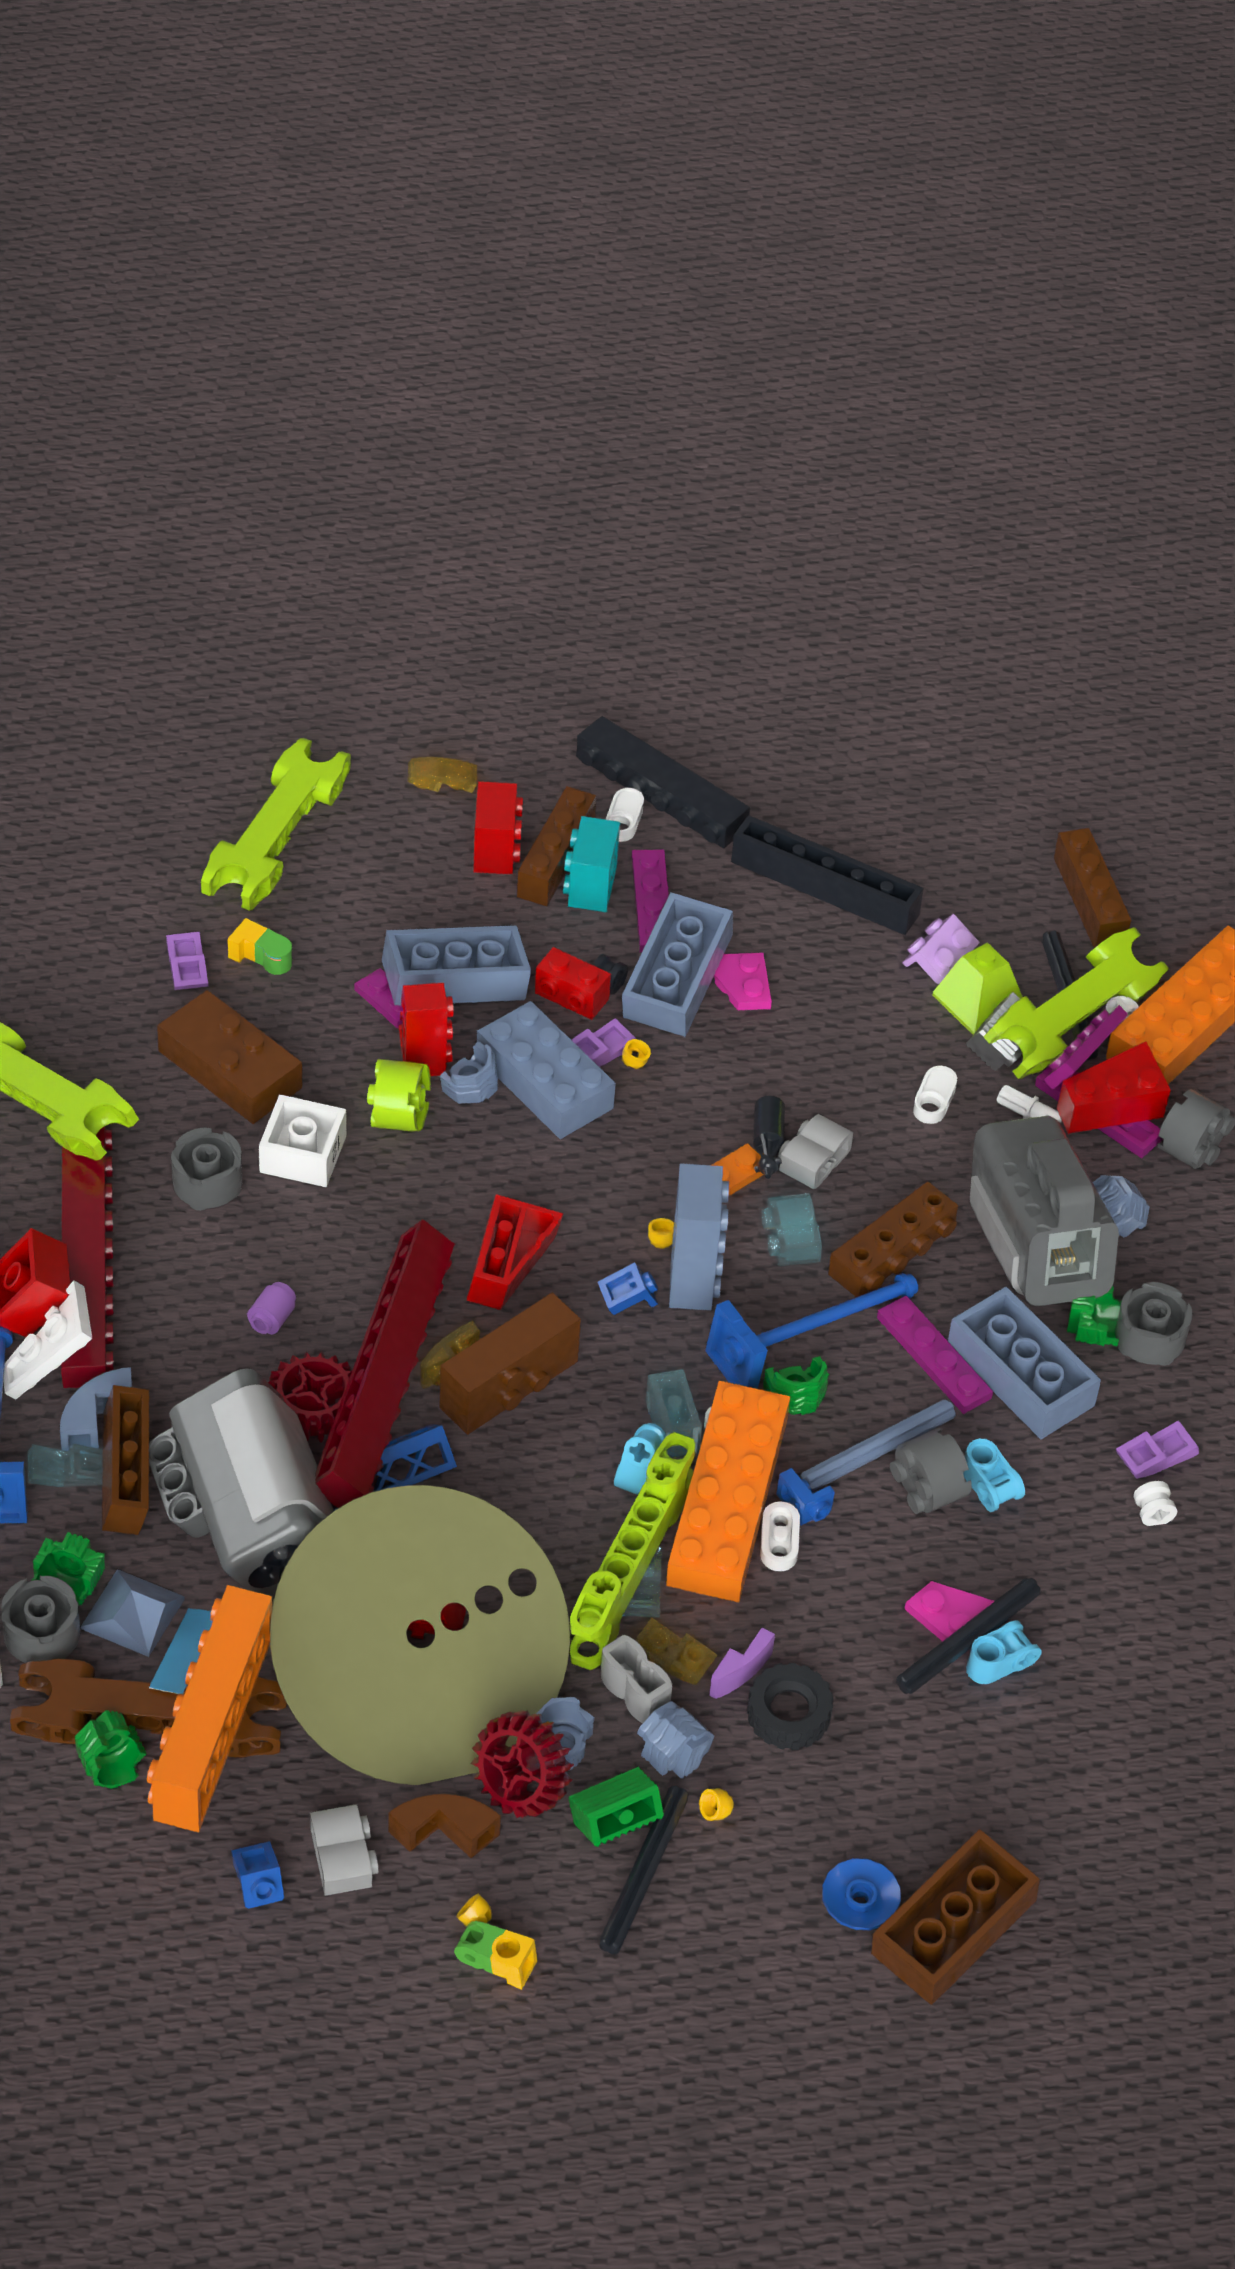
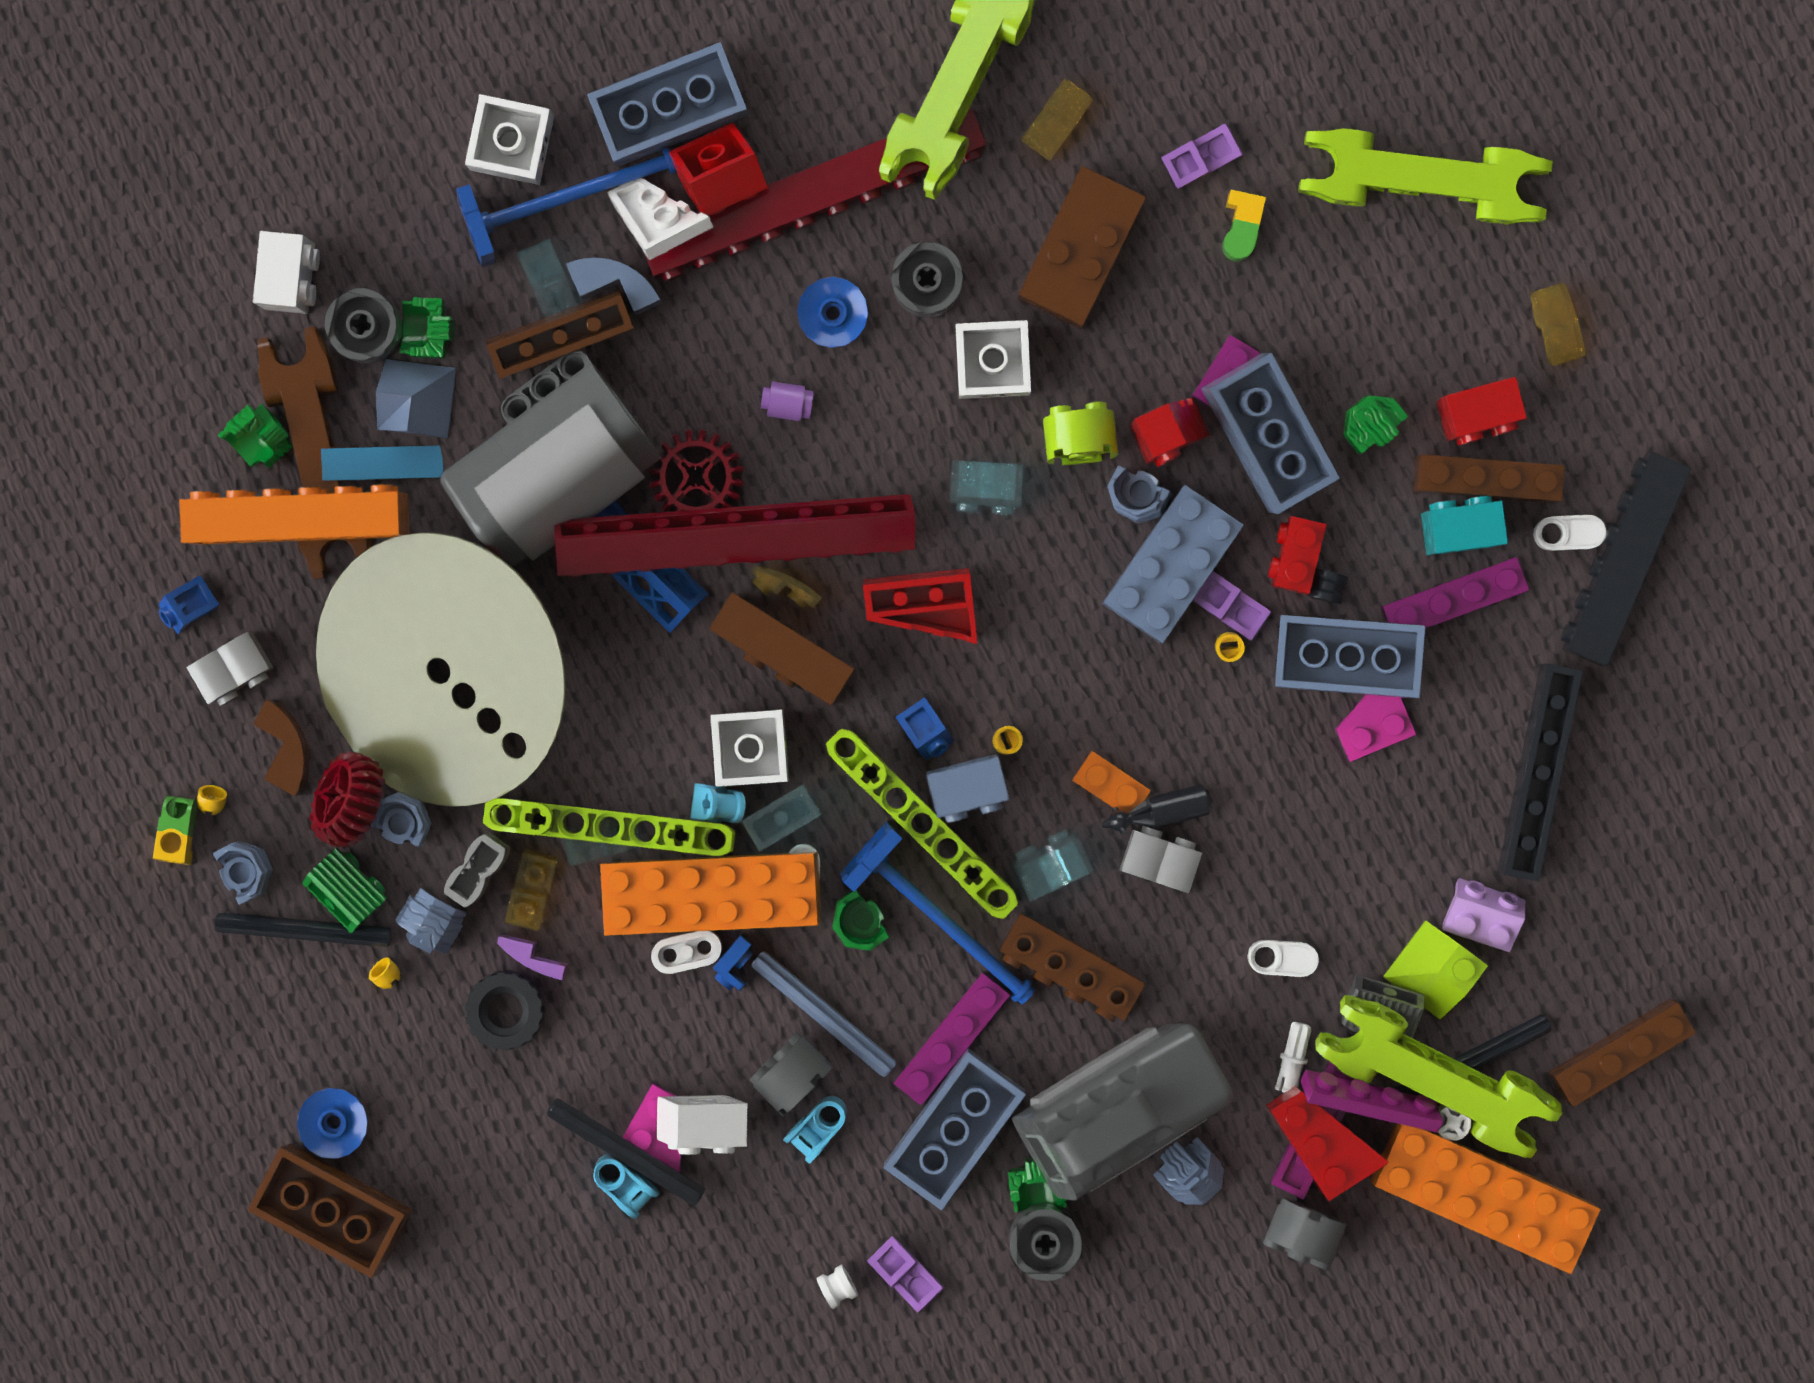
camera: 70 degrees right, 40 degrees up
(107, 1046) = (1057, 119): none -> clear yellow slope
(200, 1240) = (832, 293): none -> blue dish
(416, 1182) = (986, 485): none -> clear light blue brick
(475, 901) = (1372, 422): none -> green hair
(562, 1894) = (244, 870): none -> sand blue hair
(595, 1419) = (749, 748): none -> white brick
(668, 1322) = (958, 864): none -> lime piece
(958, 1550) = (702, 1122): none -> white brick

